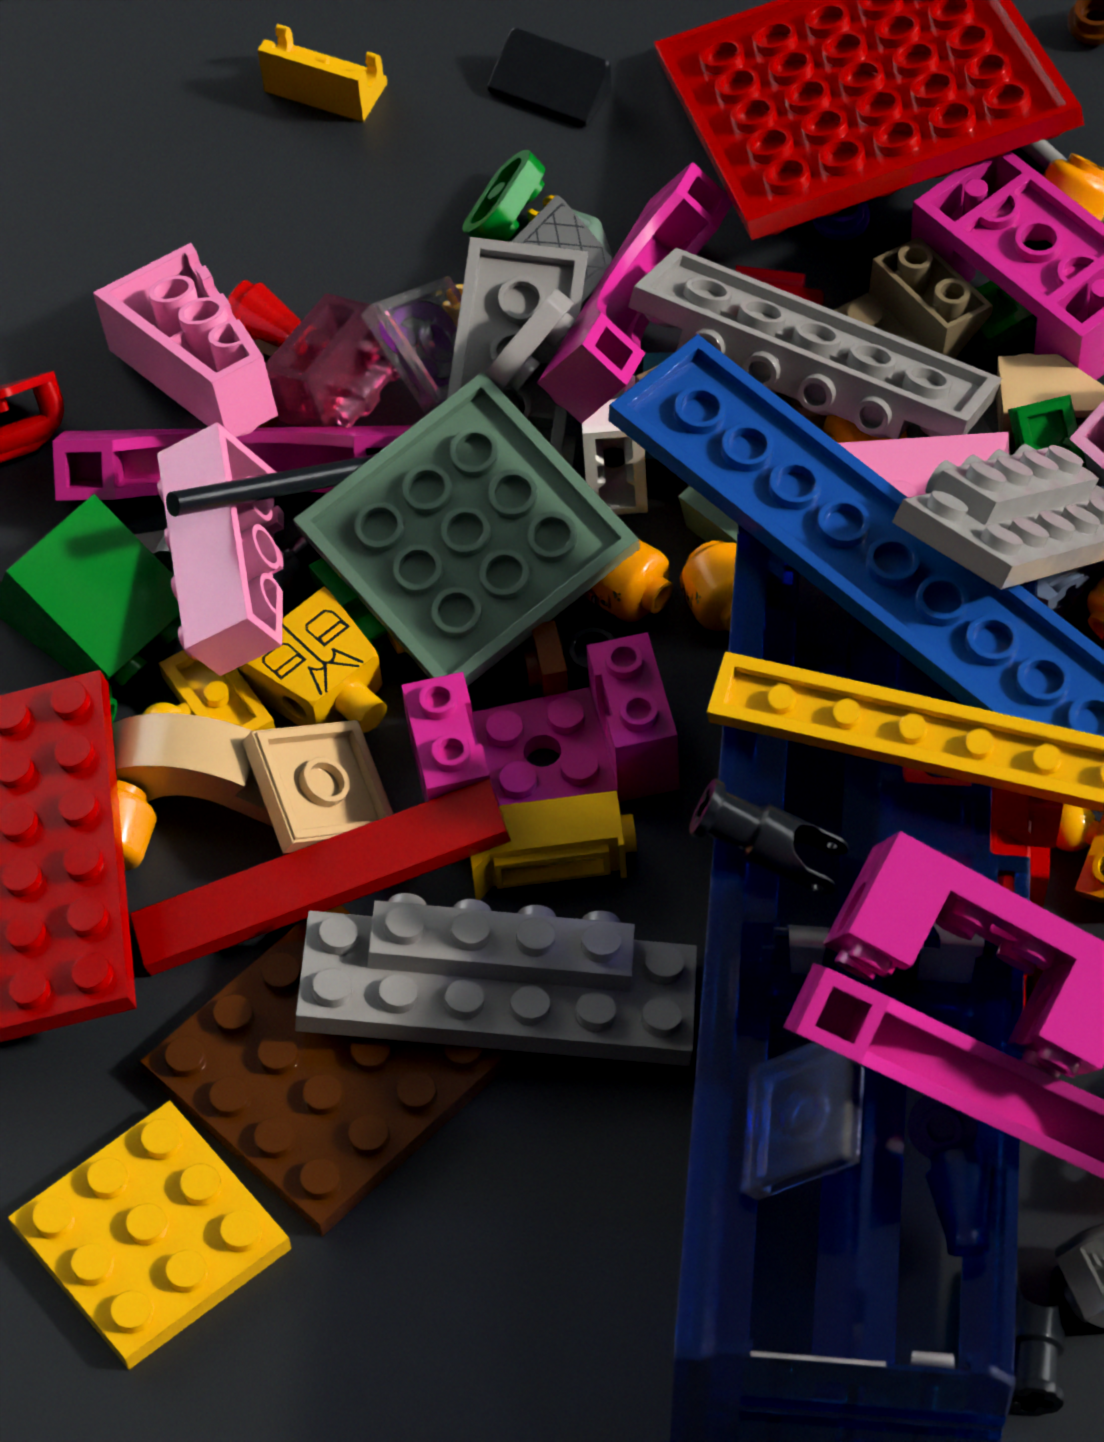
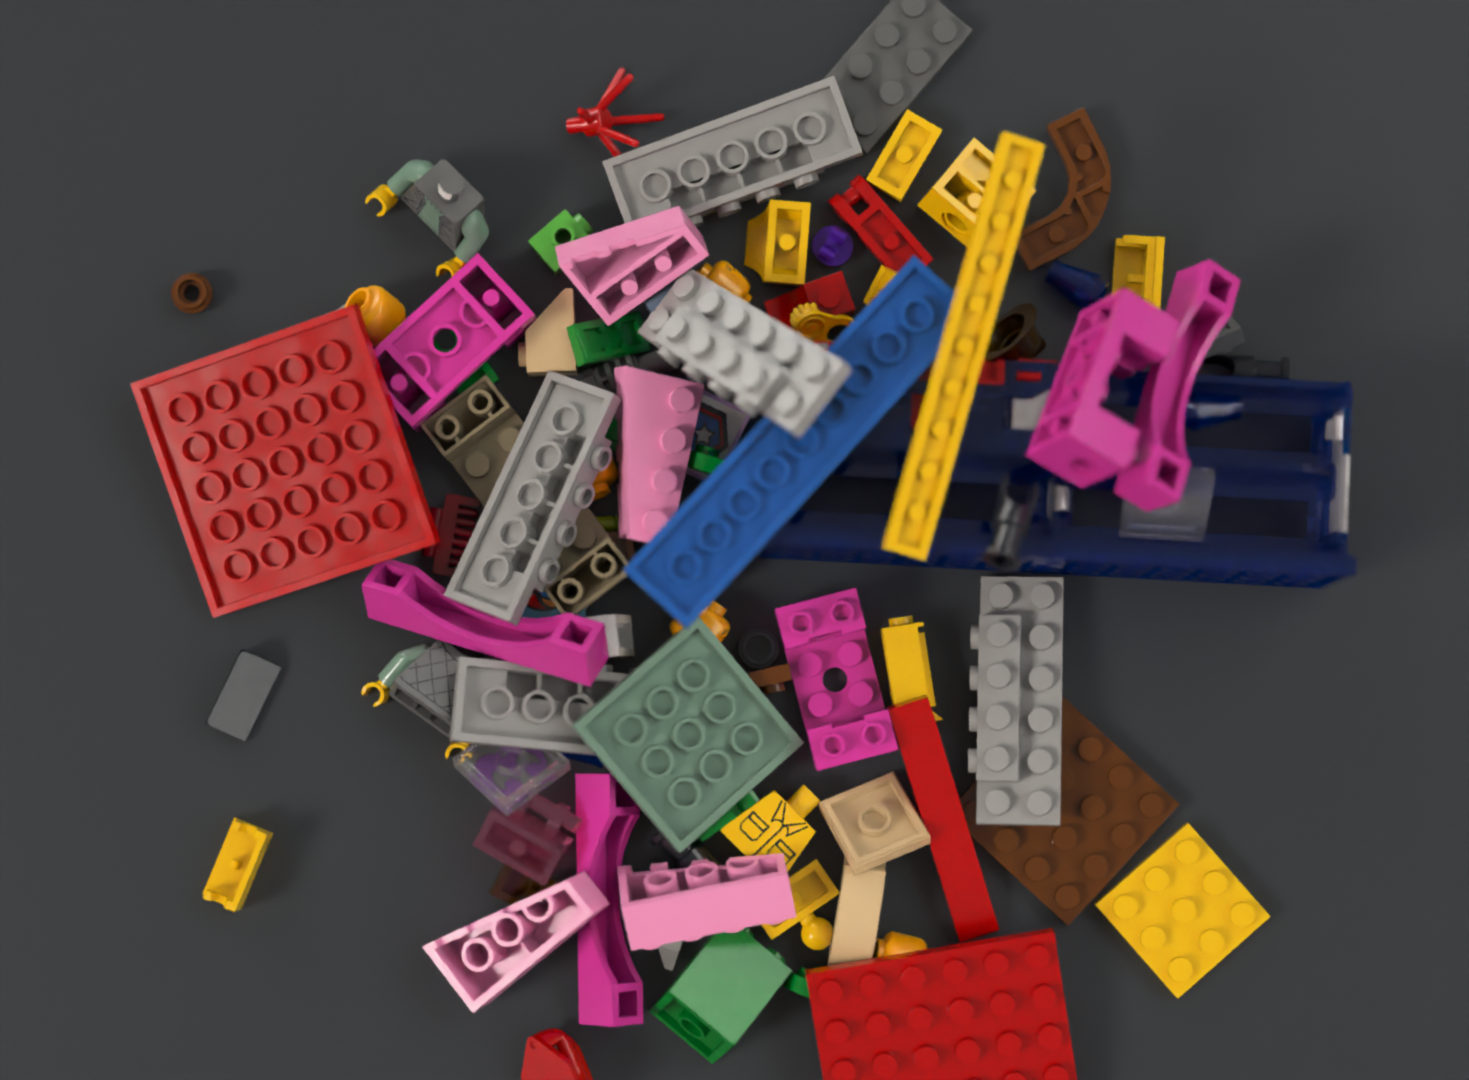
camera: 100 degrees left, 30 degrees up
(262, 313) = (470, 890): red cone -> none
(262, 486) = (672, 866): black bar -> none
(504, 197) = (363, 723): green plate -> none
(547, 324) = (553, 701): light grey plate -> none

